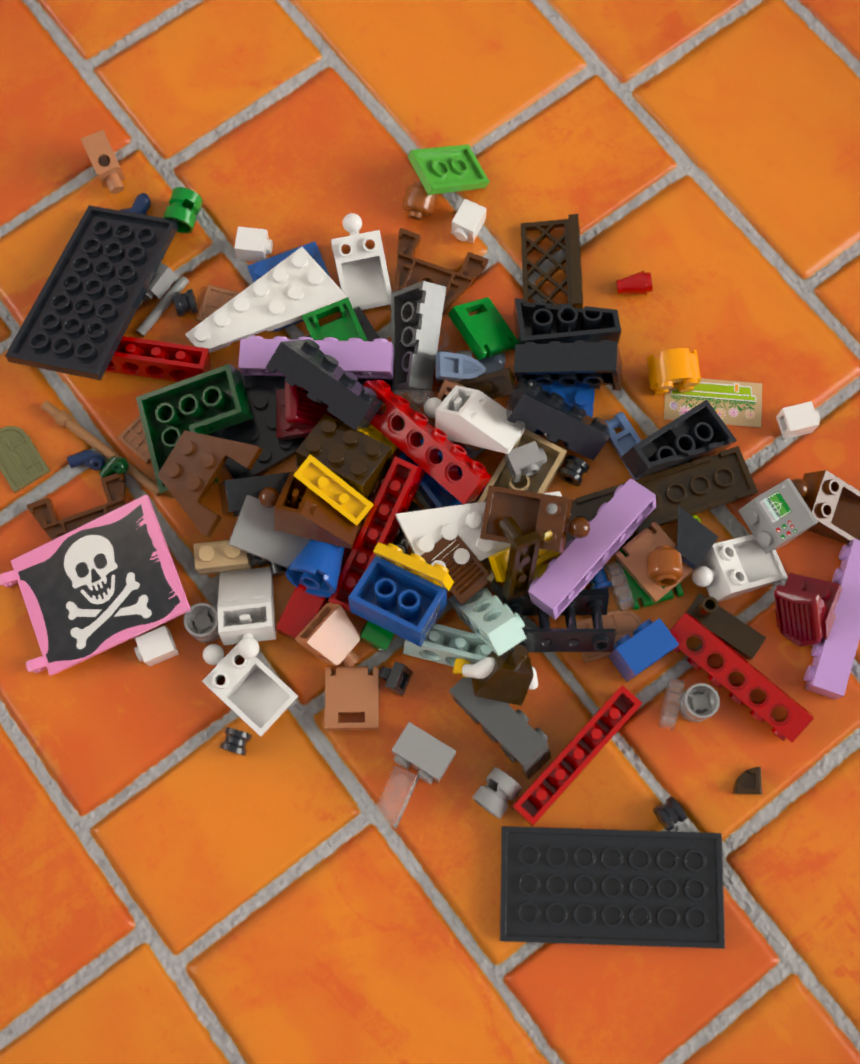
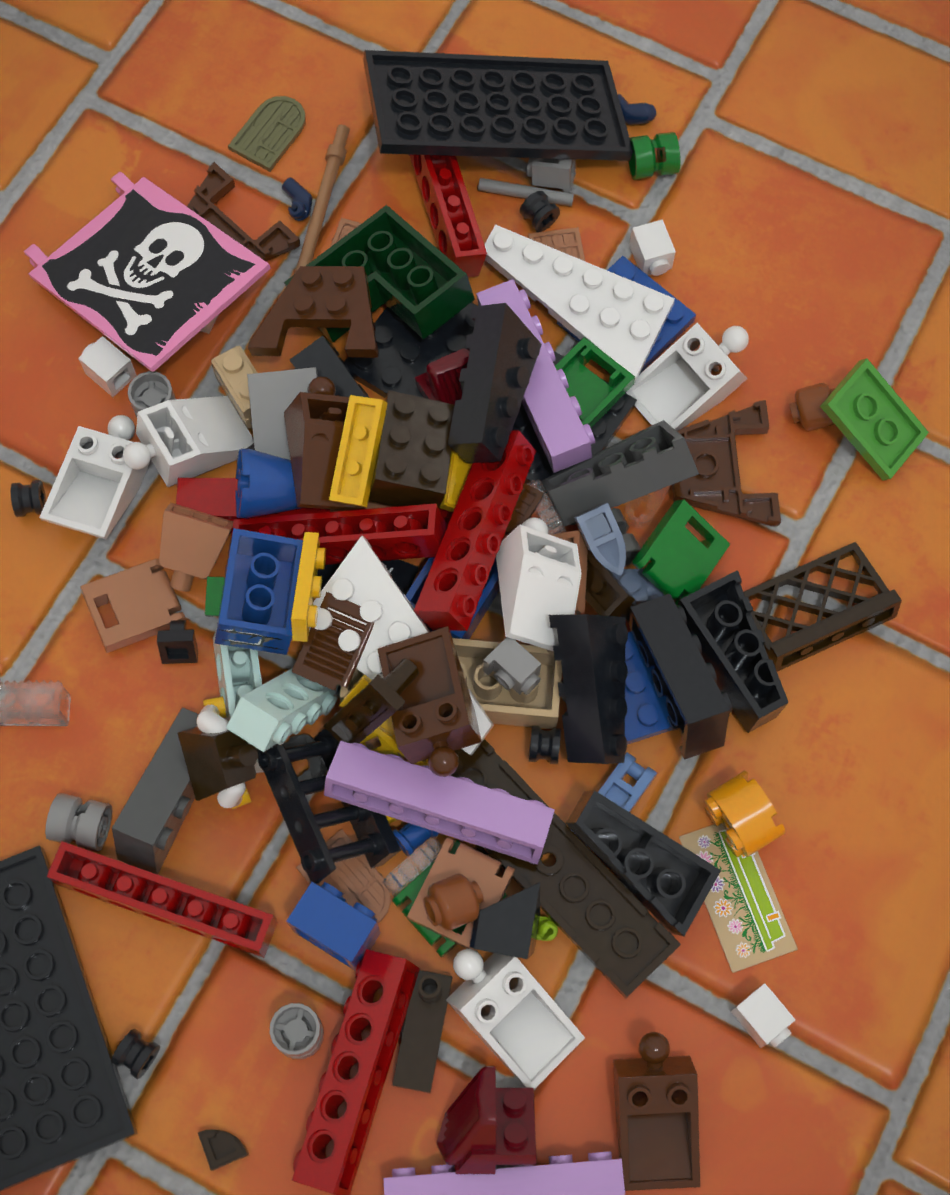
camera: 65 degrees right, 5 degrees down
(104, 161) = (668, 48): nougat torso -> none
(114, 464) = (300, 227): dark green arm -> none
(423, 754) = (89, 709): light grey brick -> none
(468, 221) = (820, 476): white brick -> none
(638, 283) = (848, 719): red cone -> none
(671, 704) = (274, 998): clear beam -> none
(777, 516) = (600, 1035): light grey slope -> none

